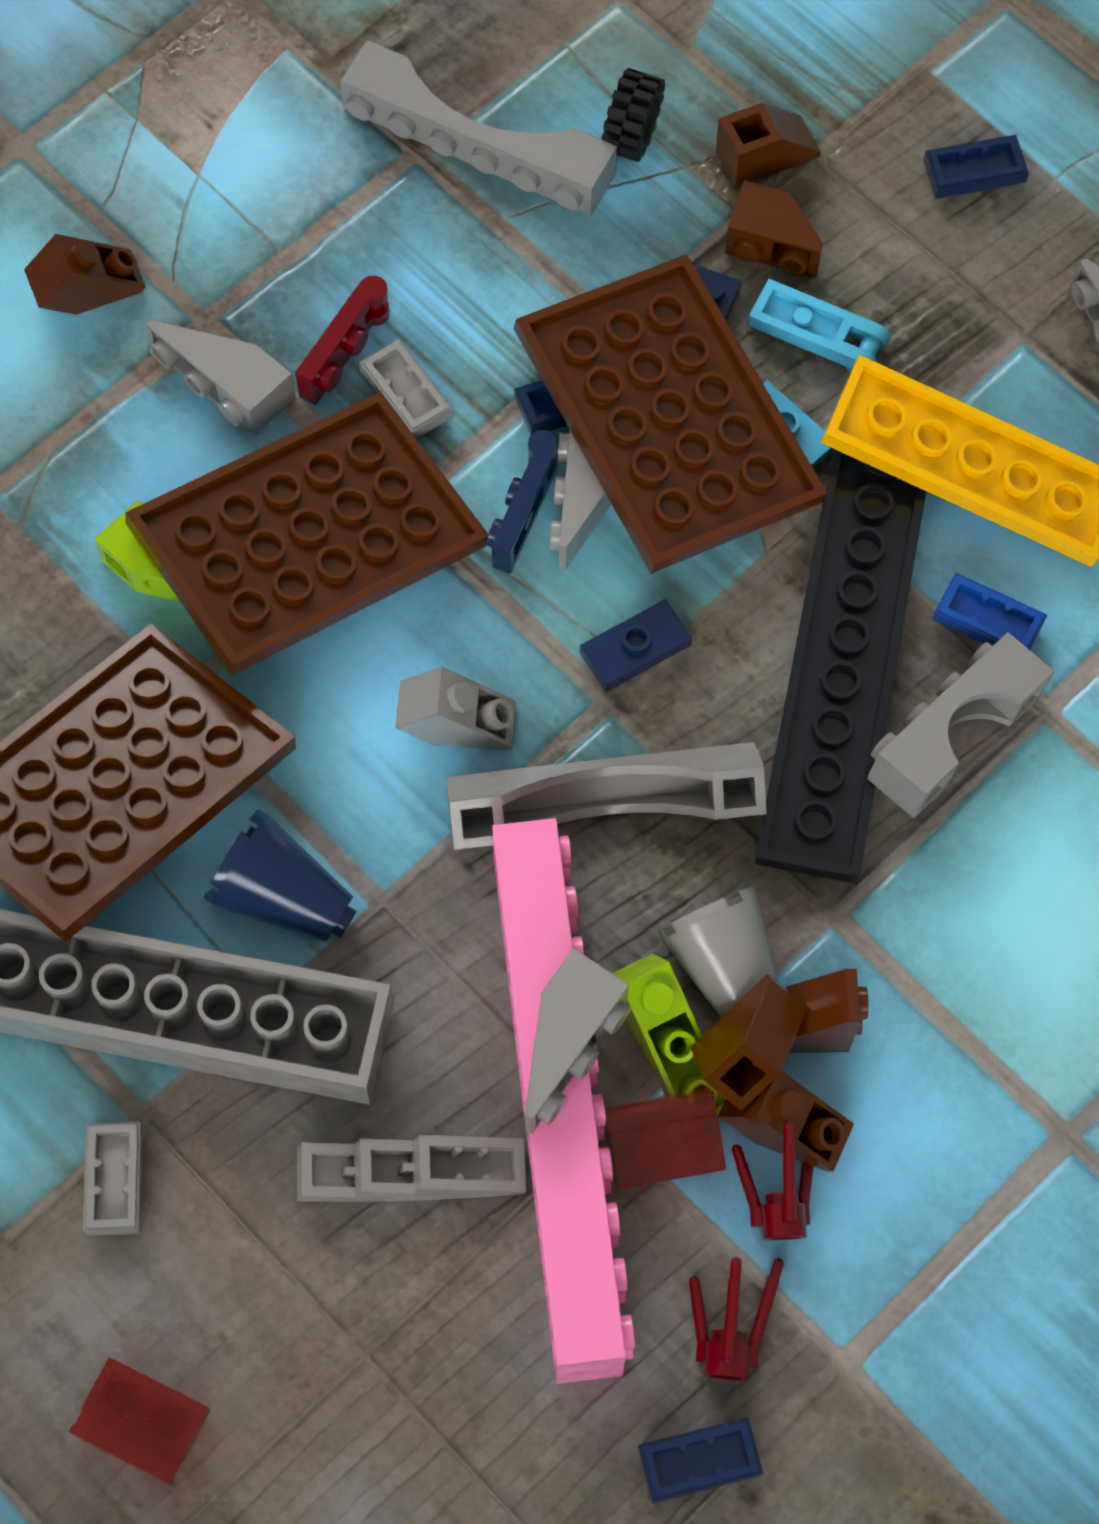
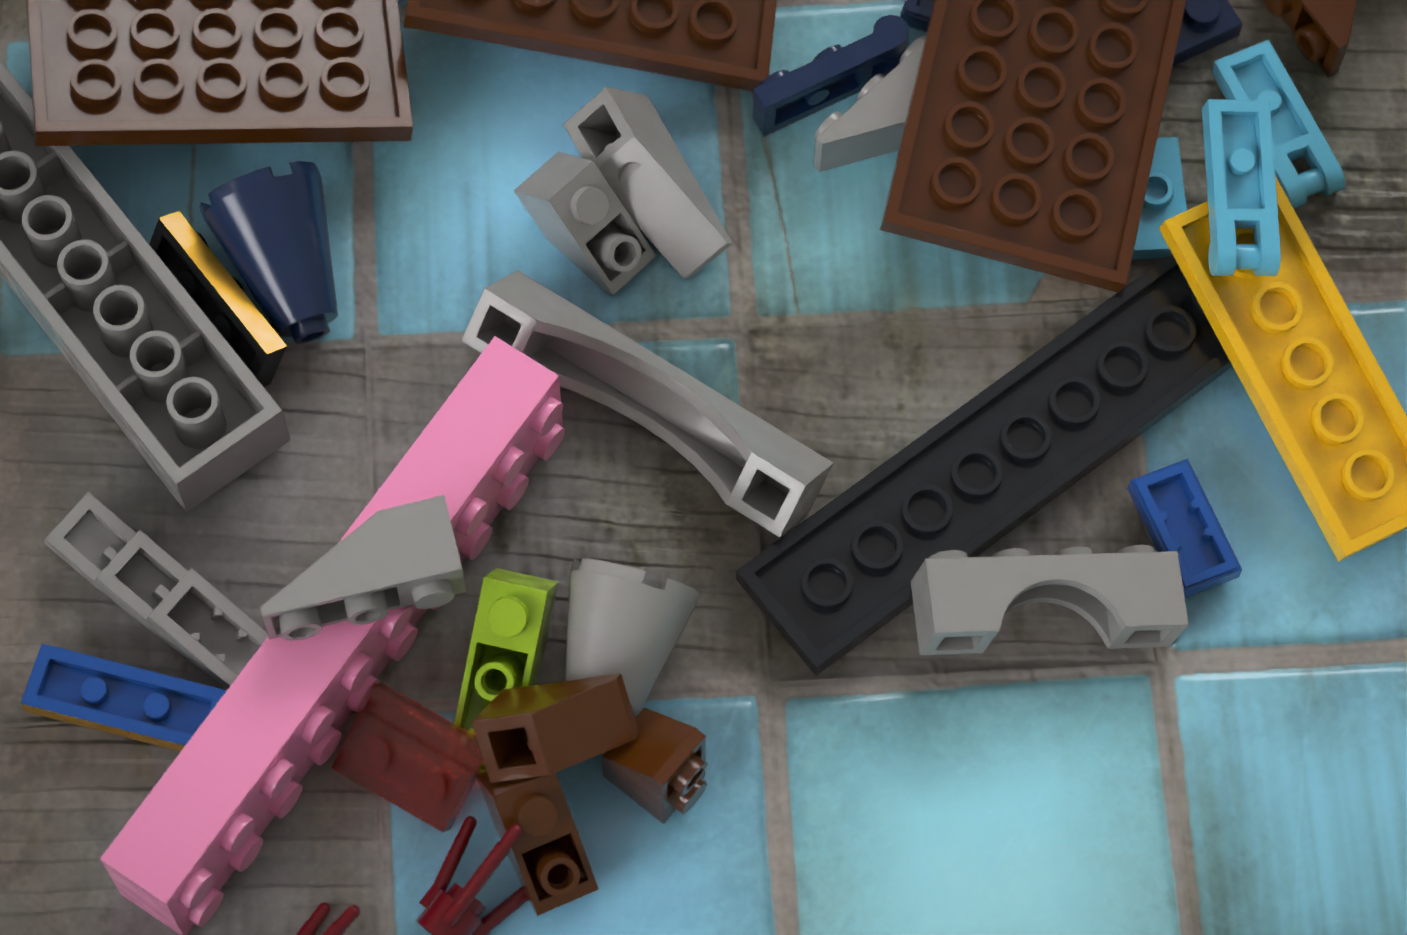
camera: 40 degrees right, 0 degrees up
(264, 943) = (218, 295): none -> plate
(449, 1257) = (117, 698): none -> blue plate
(476, 651) = (649, 177): none -> light grey slope
(635, 645) = (815, 290): dark blue plate -> none
(856, 377) = (1241, 186): none -> medium azure plate

